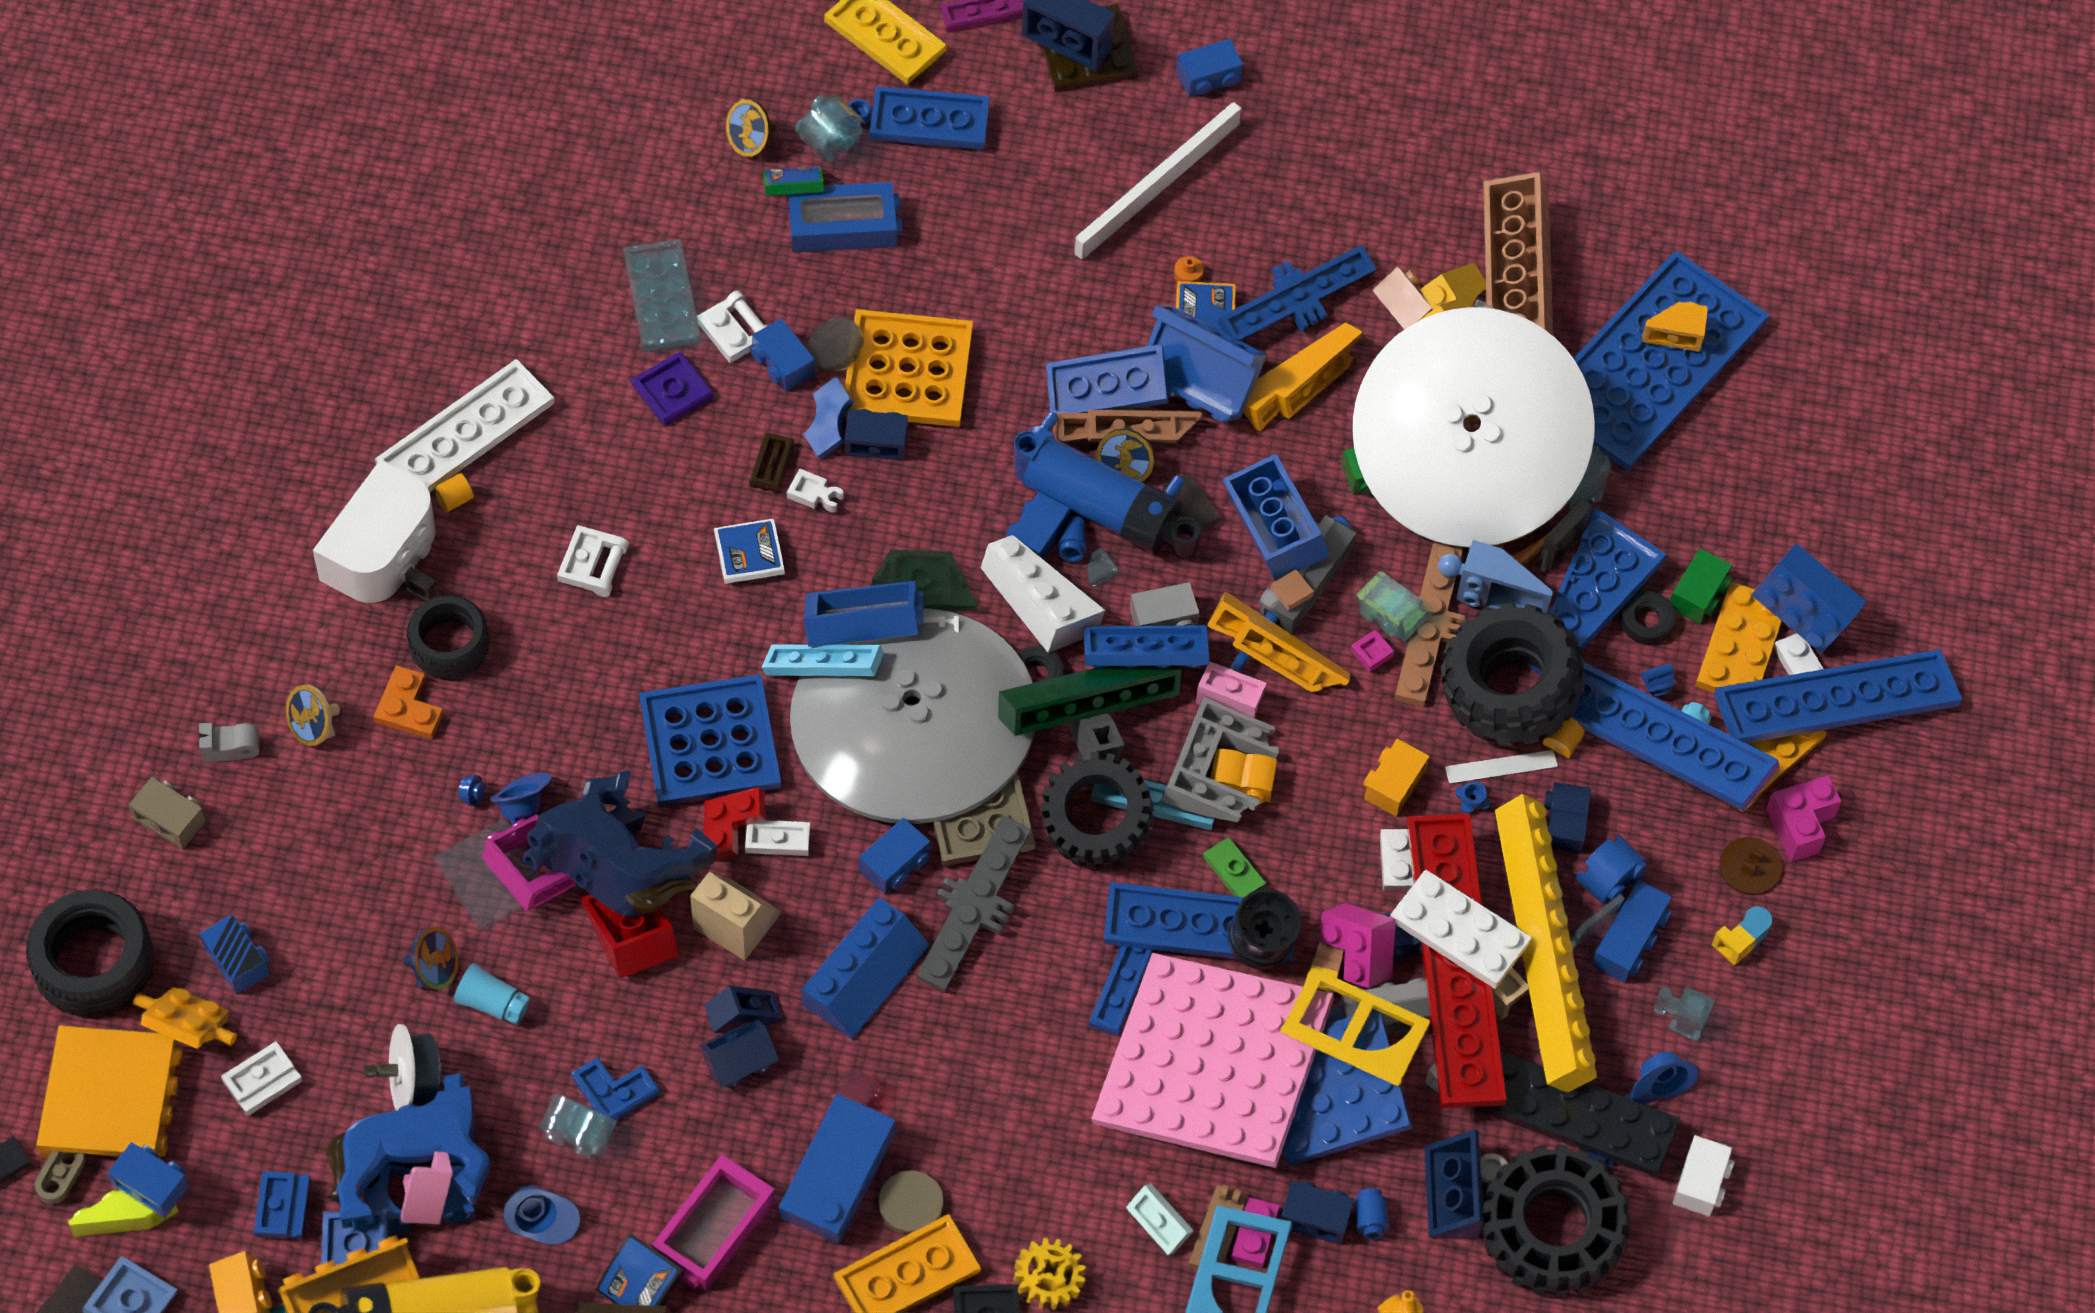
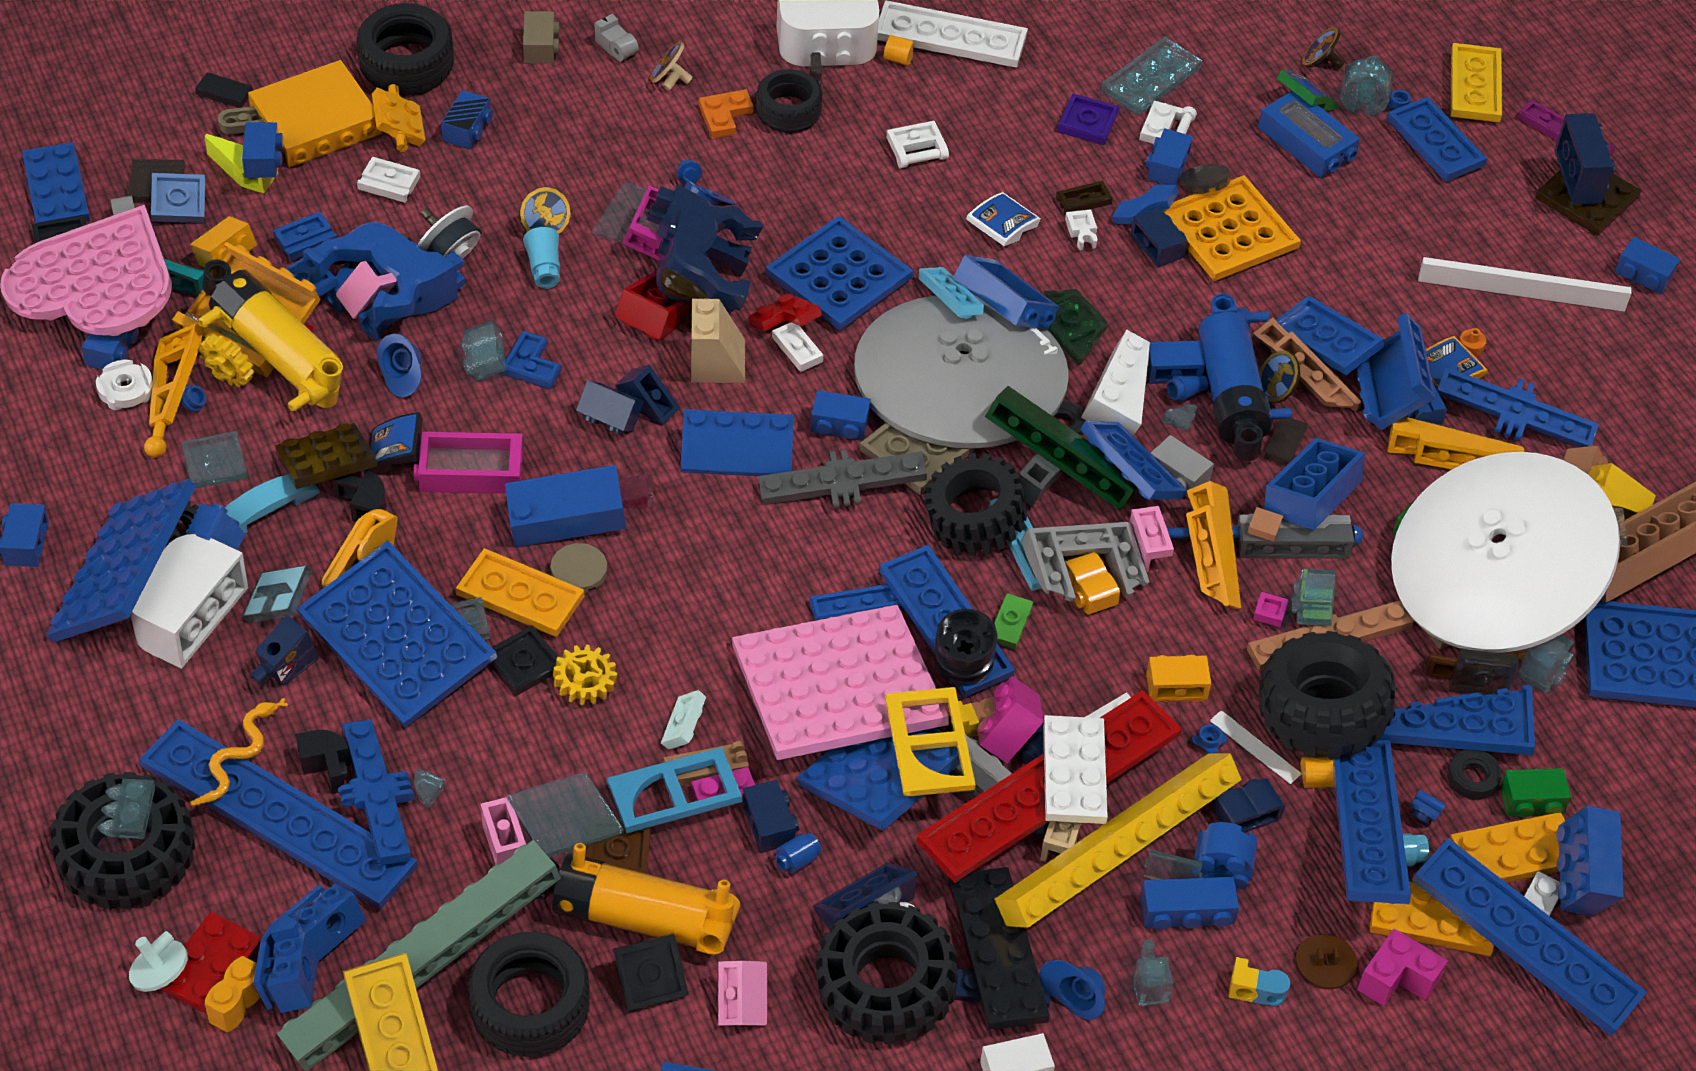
camera: 55 degrees right, 10 degrees down
(1494, 579) = (1399, 640): medium blue slope -> none

